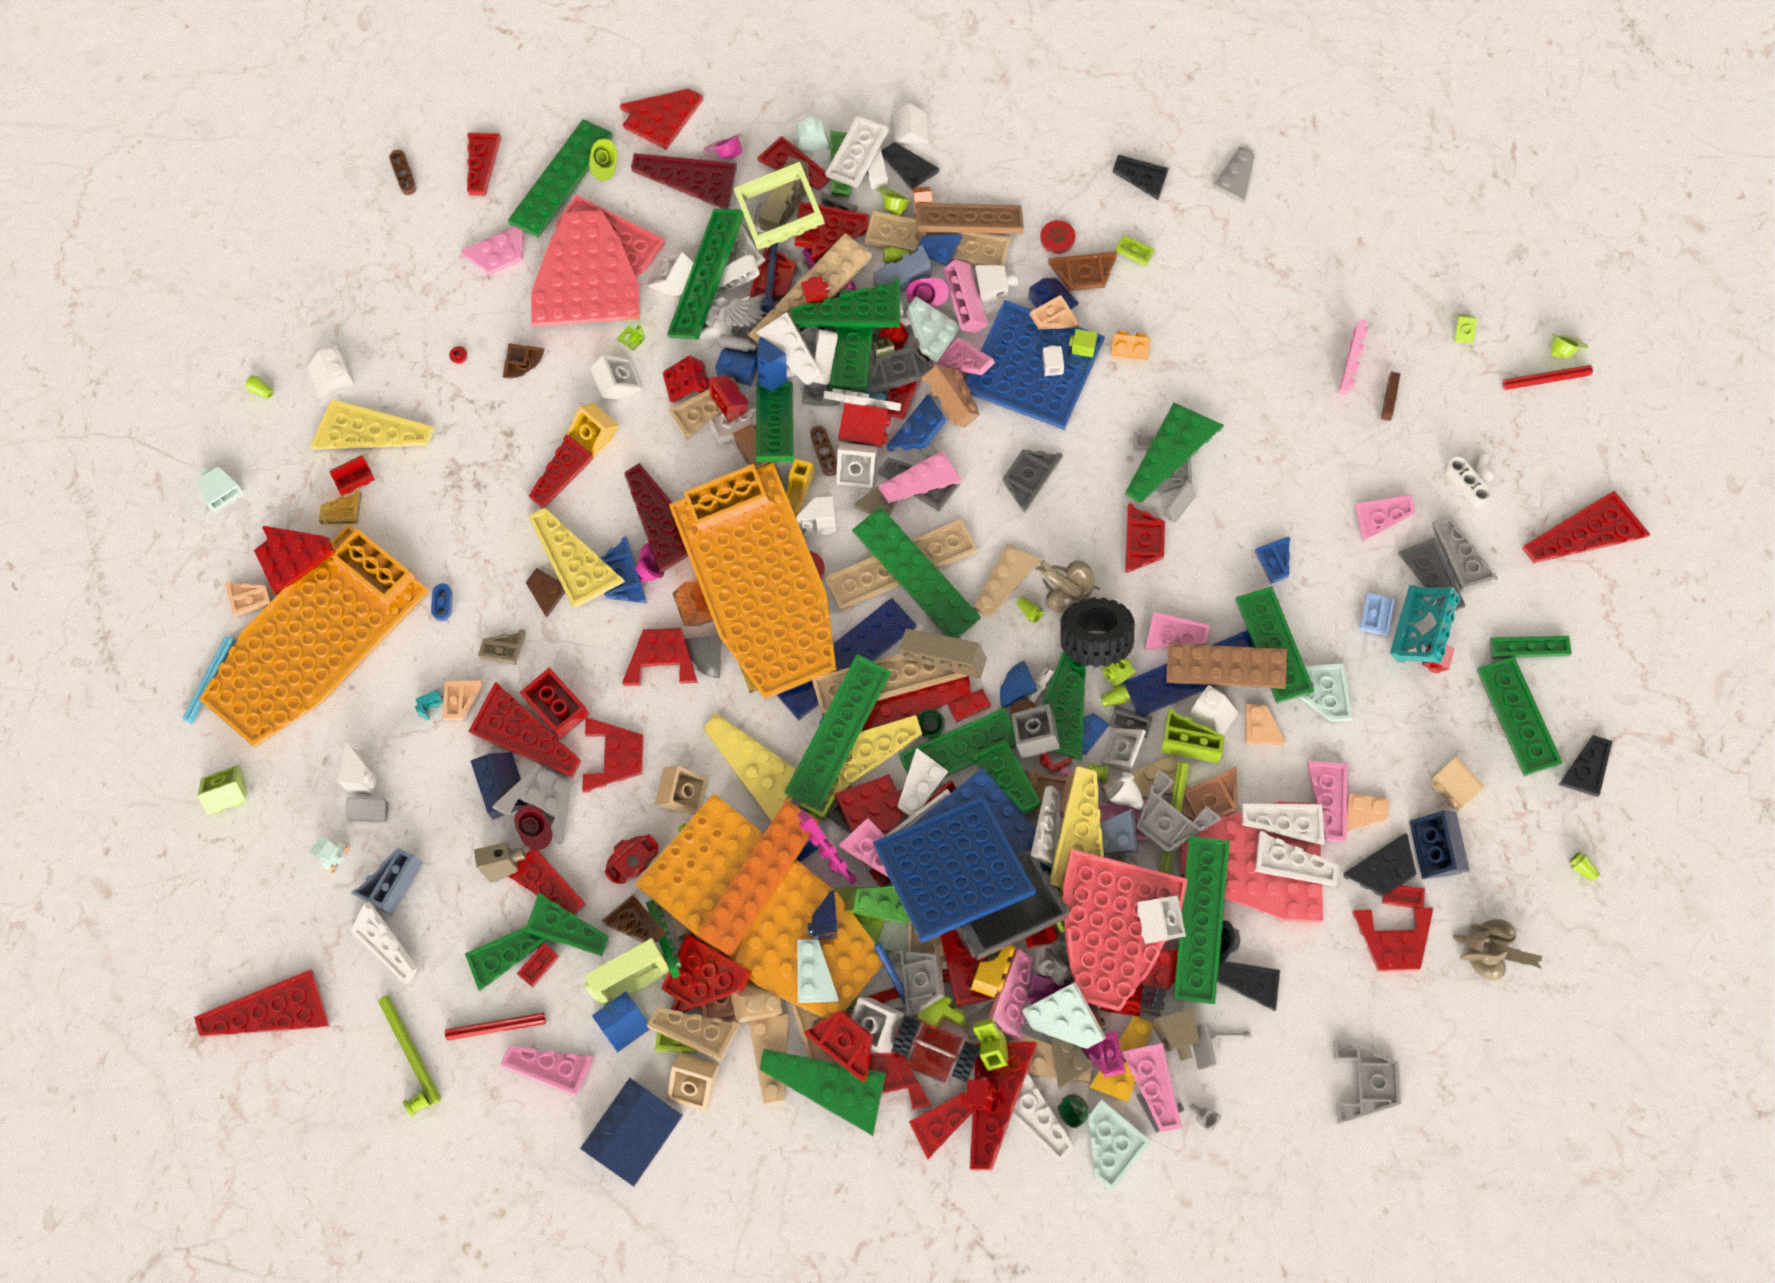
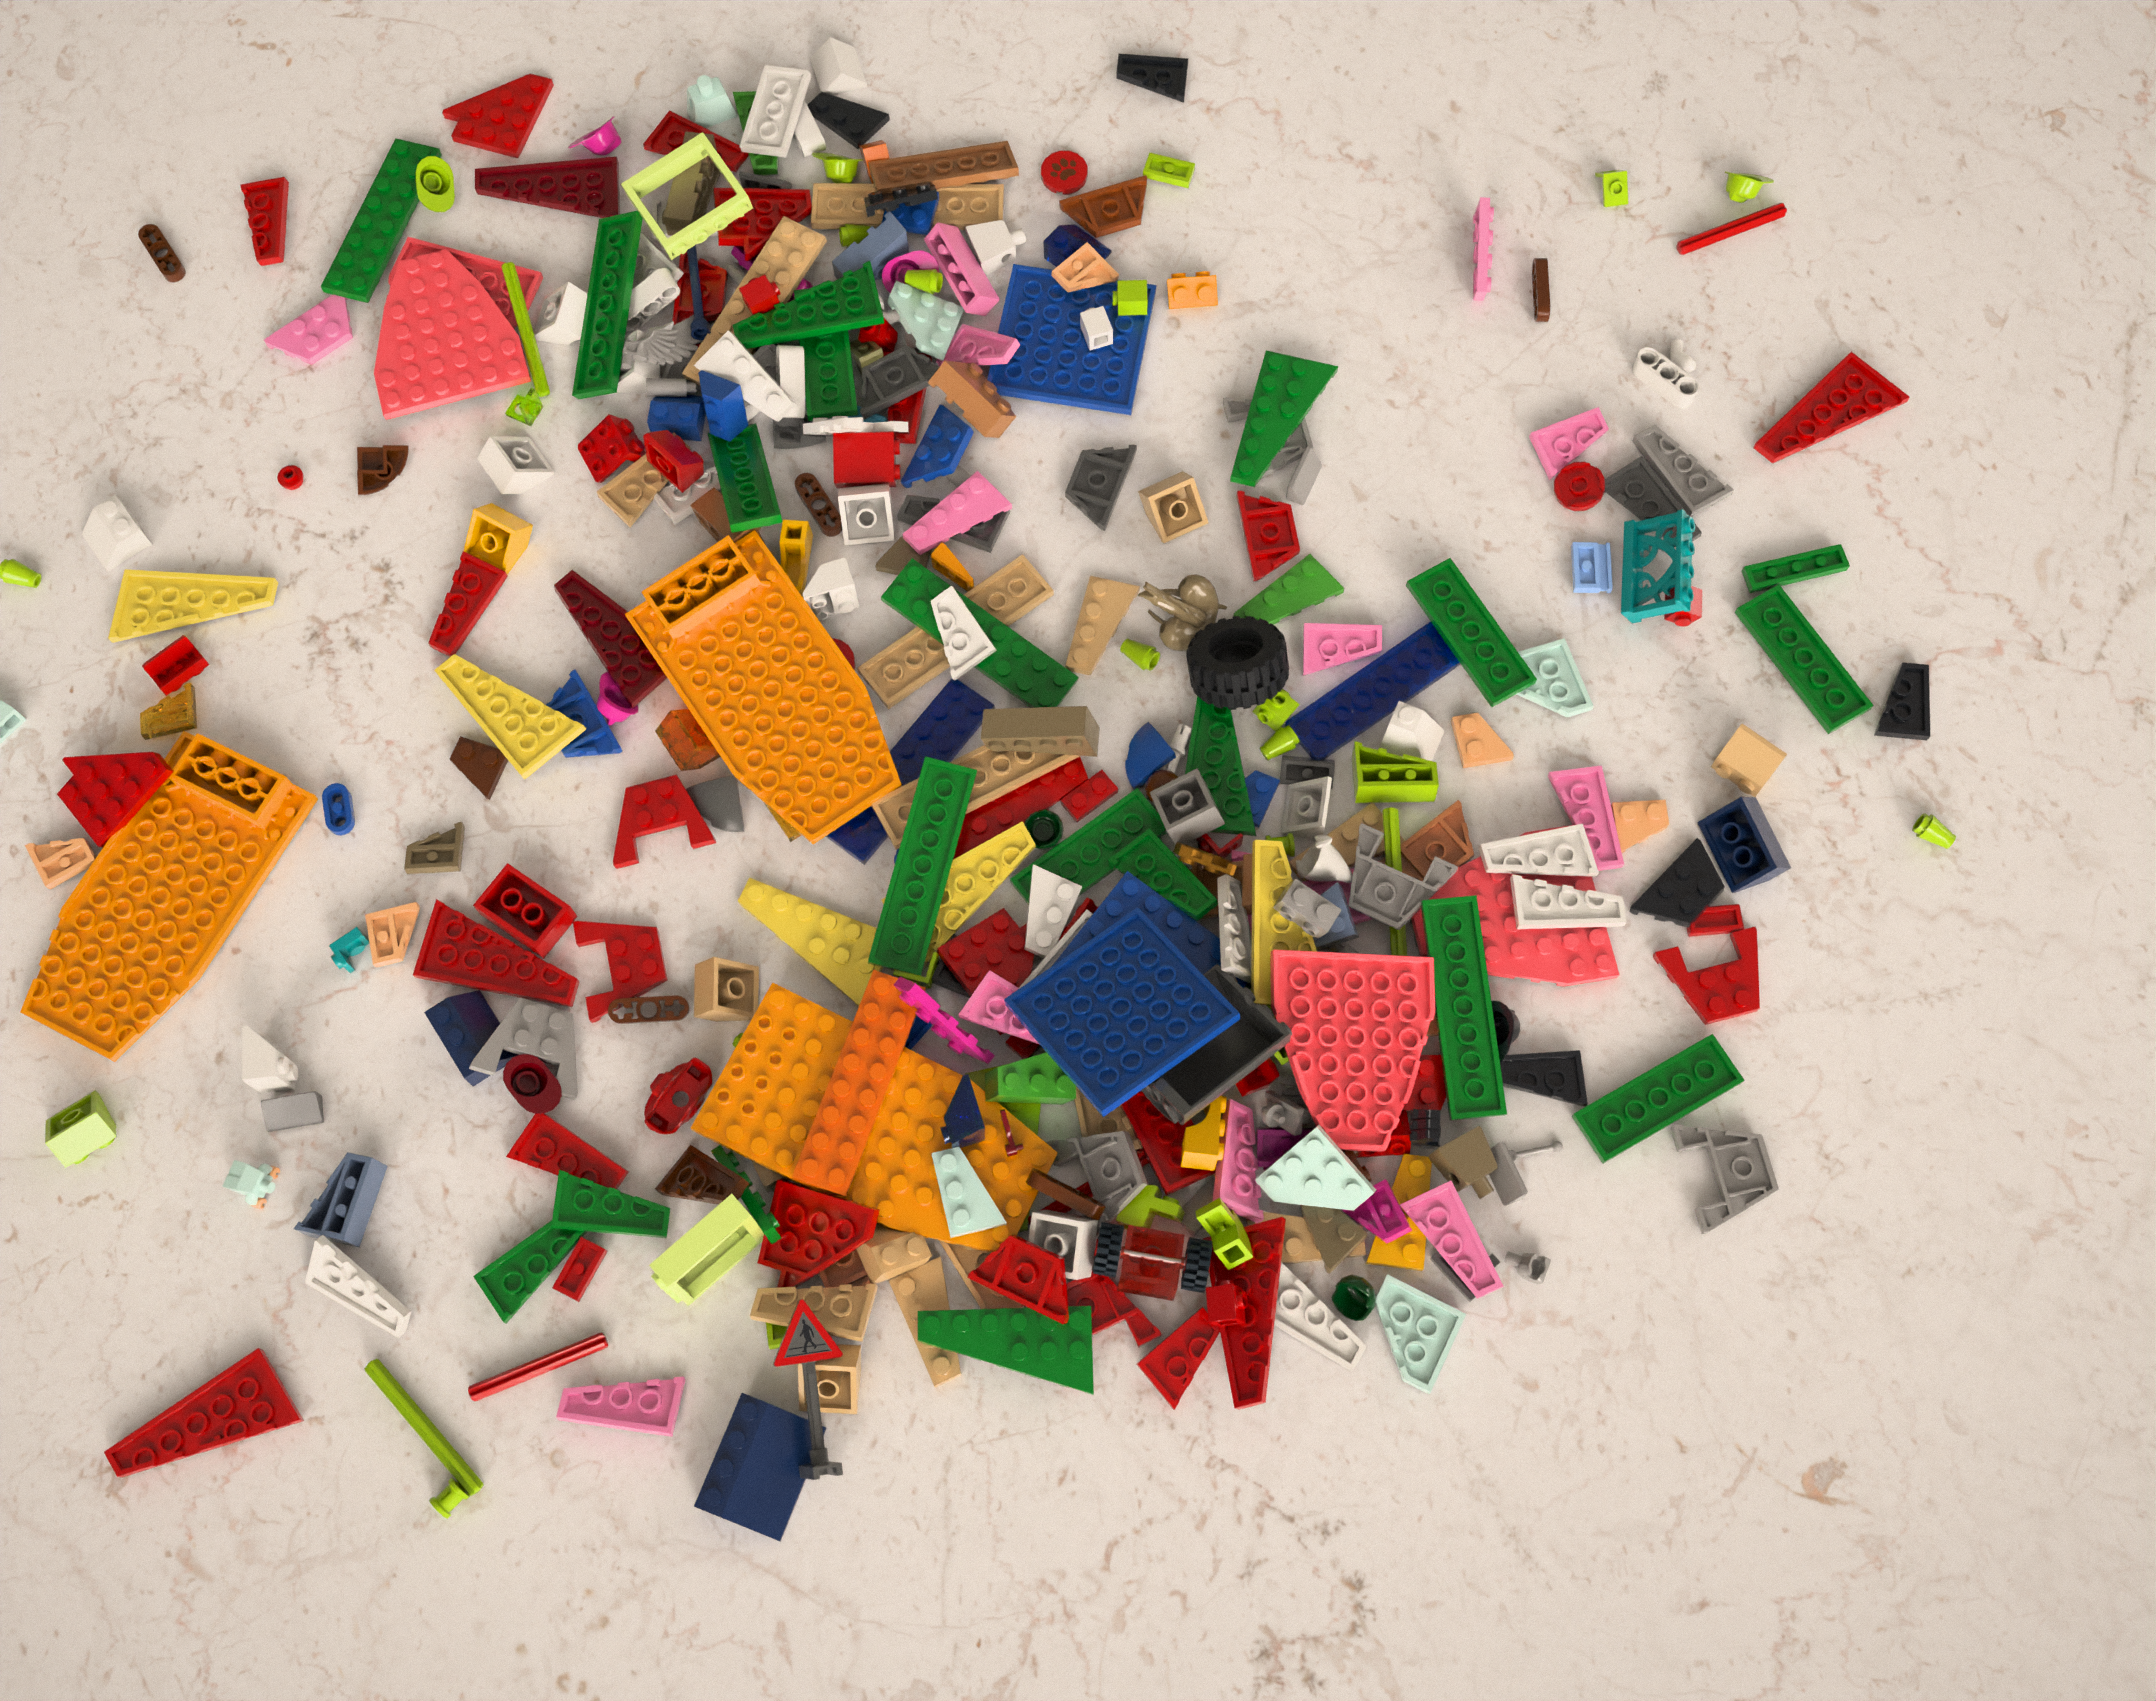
camera: 15 degrees left, 0 degrees up
(220, 657) = (39, 948): medium azure axle -> none
(498, 861) = (493, 1139): dark tan torso -> none
(621, 1021) = (713, 1319): blue slope -> none
(629, 799) = (627, 1003): none -> reddish brown beam
(644, 280) = (525, 329): none -> lime axle
(681, 1054) = (805, 1344): none -> dark grey piece
(853, 948) = (1011, 1149): none -> dark red piece
(885, 990) = (1065, 1194): none -> reddish brown beam
(891, 971) = (1065, 1165): blue bar -> none
(903, 569) = (960, 632): none -> white wing
(905, 513) = (948, 565): none -> light orange slope
(923, 237) = (891, 201): none -> black wing
(936, 300) = (925, 280): none -> lime cone
(1043, 773) = (1212, 862): none -> pearl gold wing
(1079, 505) = (1173, 506): none -> tan slope
(1102, 825) = (1306, 909): none -> light grey brick
(1154, 585) = (1295, 590): none -> bright green wing
(1161, 919) = (1412, 1017): white slope -> none
(1226, 666) = (1416, 671): medium nougat plate -> none
(1236, 175) = (1276, 53): light grey wing -> none
(1275, 559) = (1444, 524): blue wing -> none
(1329, 1017) = (1657, 1098): none -> green plate
(1383, 551) = (1579, 486): none -> red tile
(1489, 947) = (1840, 961): dark tan hair -> none

